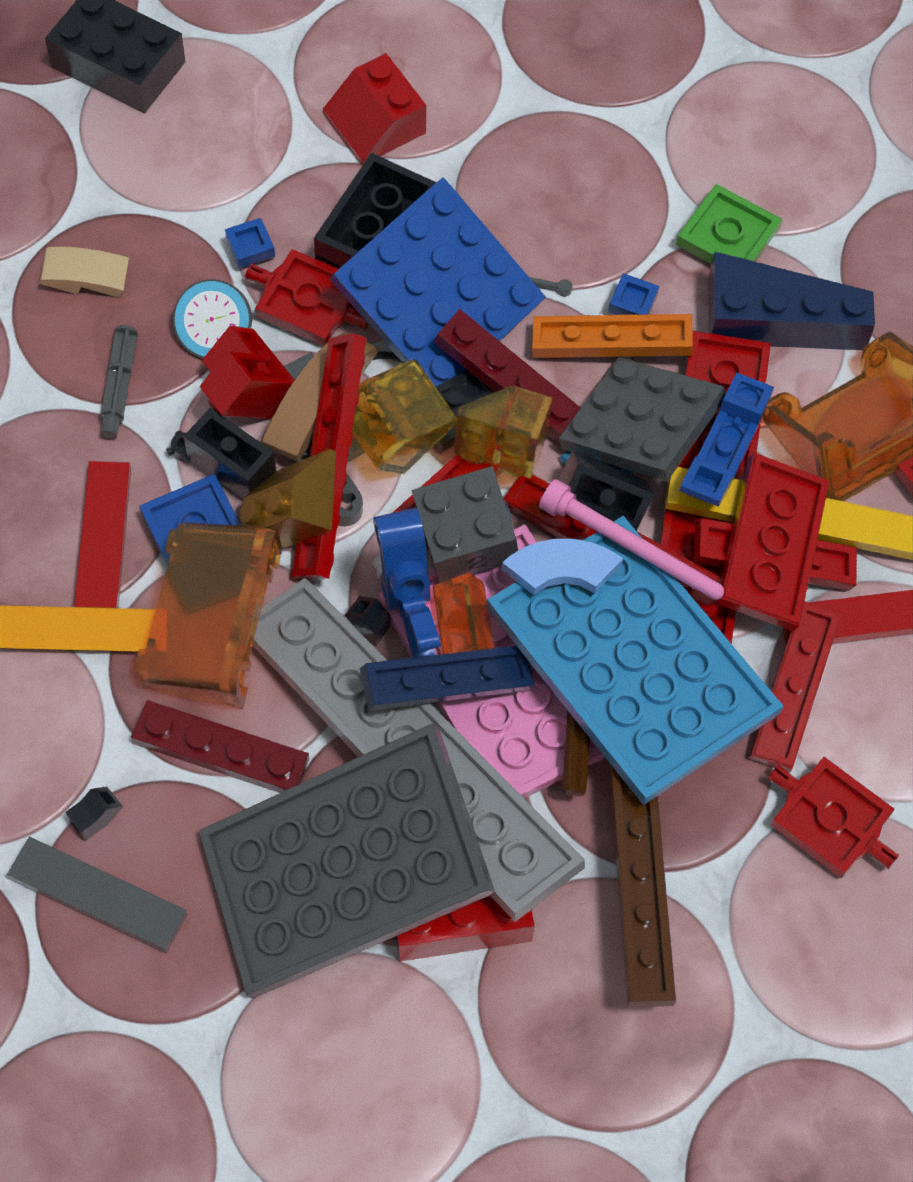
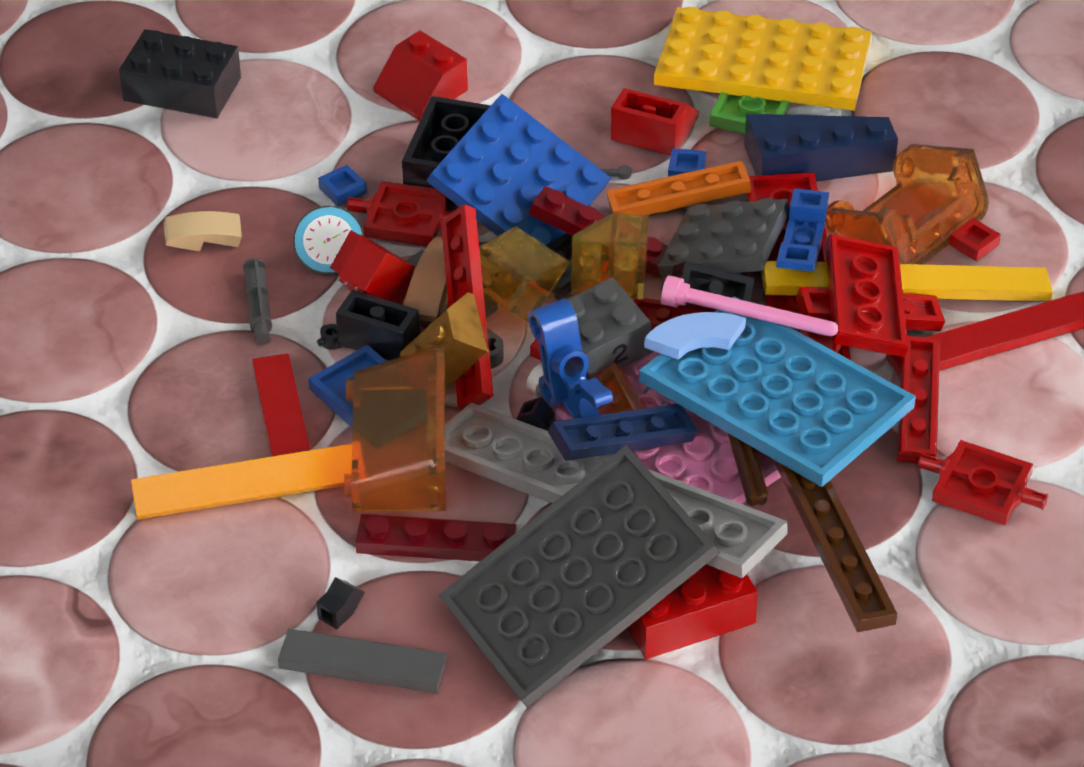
camera: 10 degrees left, 20 degrees down
(611, 229) = (651, 121): none -> red slope
(762, 165) = (764, 58): none -> yellow plate

